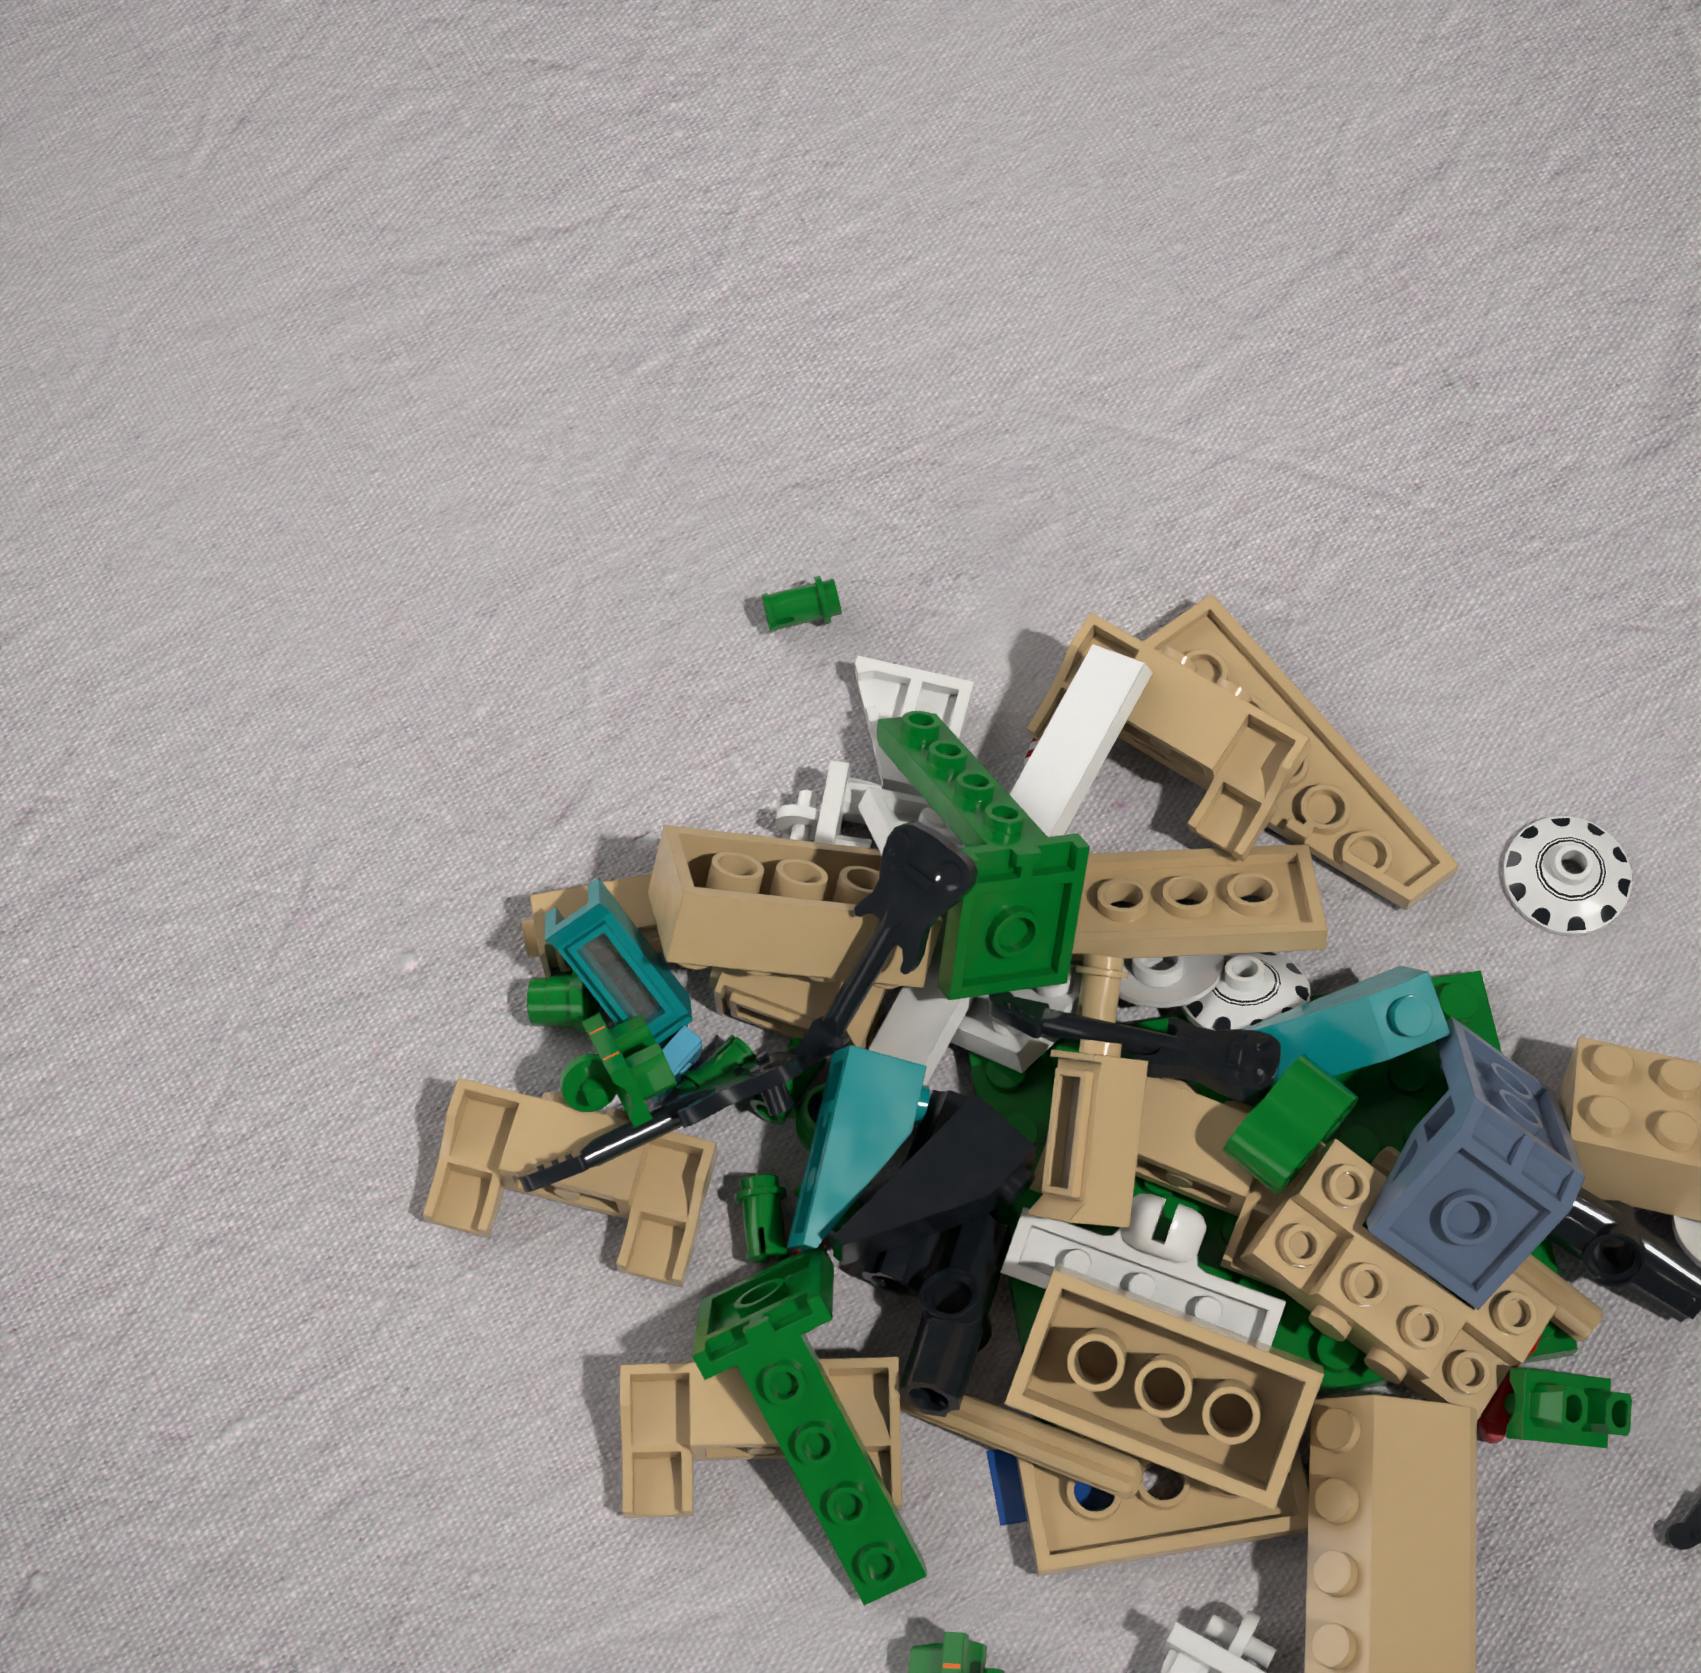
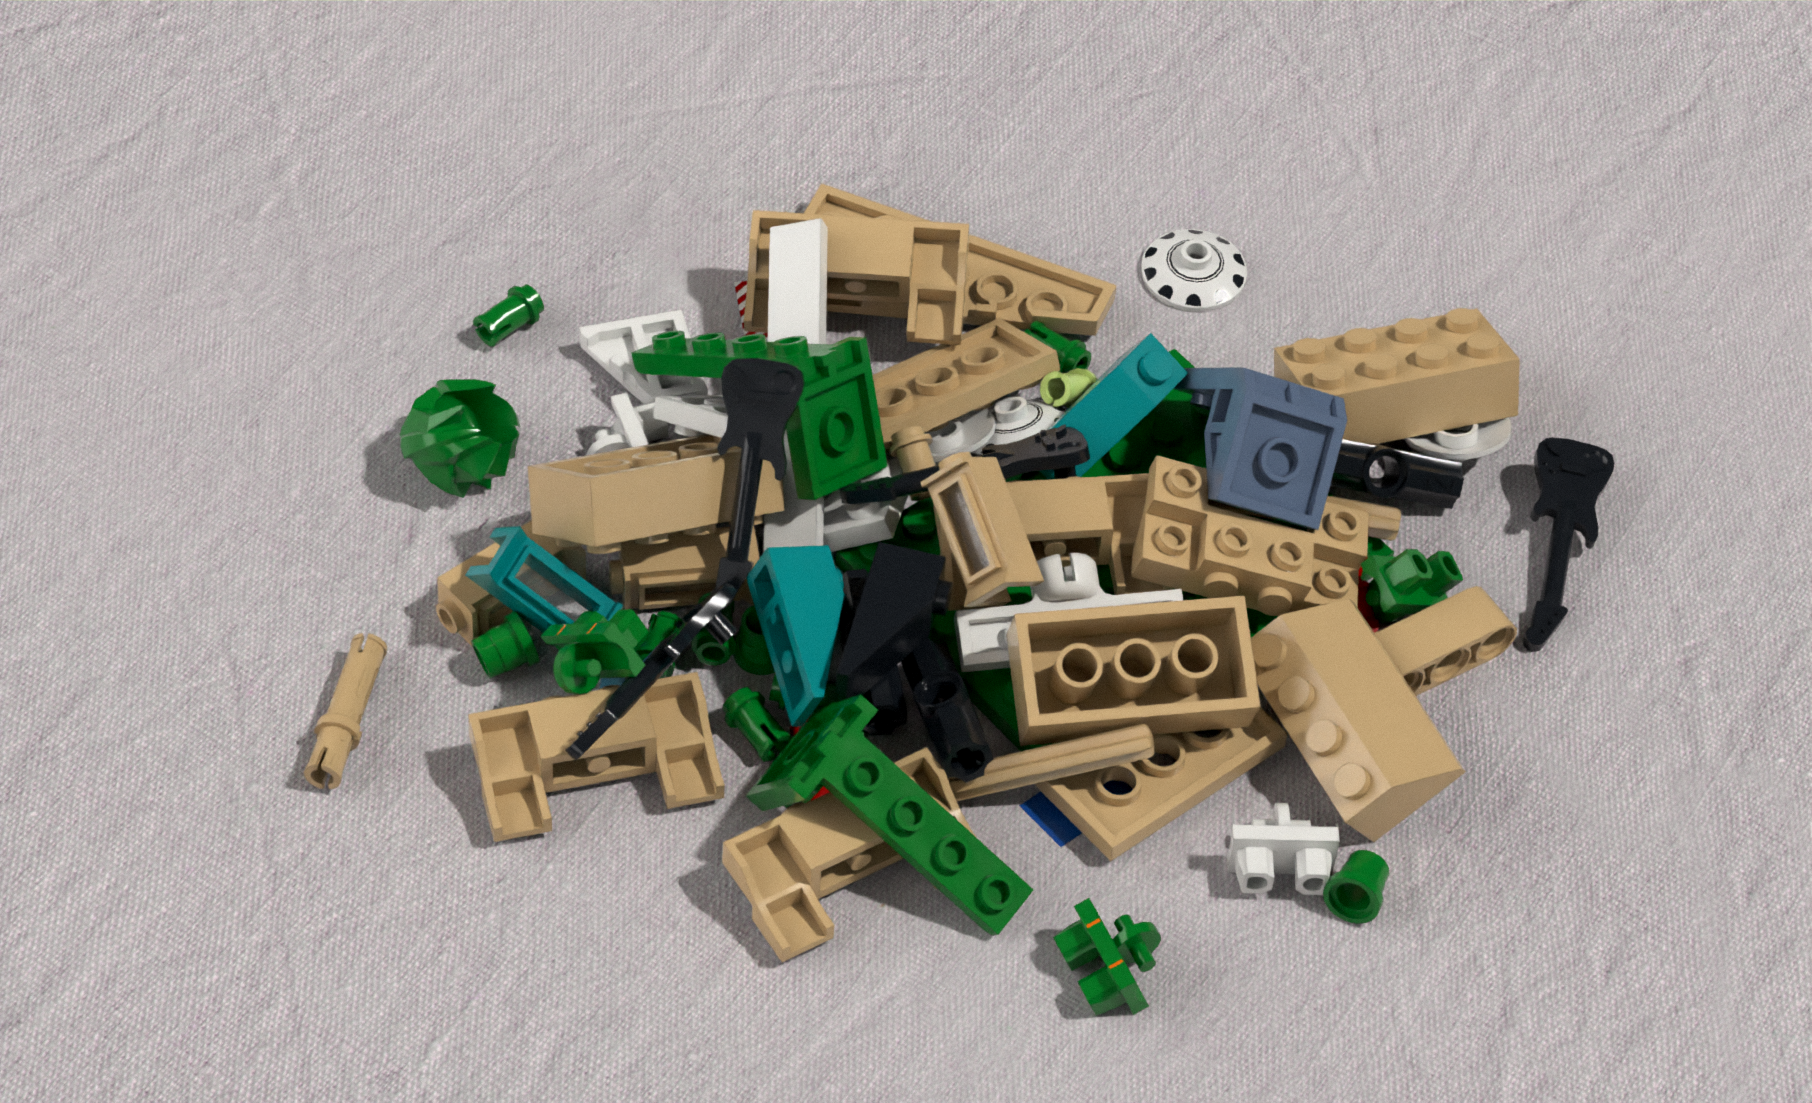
camera: 35 degrees left, 15 degrees down
(380, 986) = (339, 728): none -> tan pin
(656, 732) = (460, 434): none -> green hair
(1290, 1124) = (1118, 462): green axle -> none
(1328, 970) = (1065, 388): none -> yellowish green pin
(1354, 925) = (1070, 353): none -> green pin
(1564, 1494) = (1447, 639): none -> tan beam

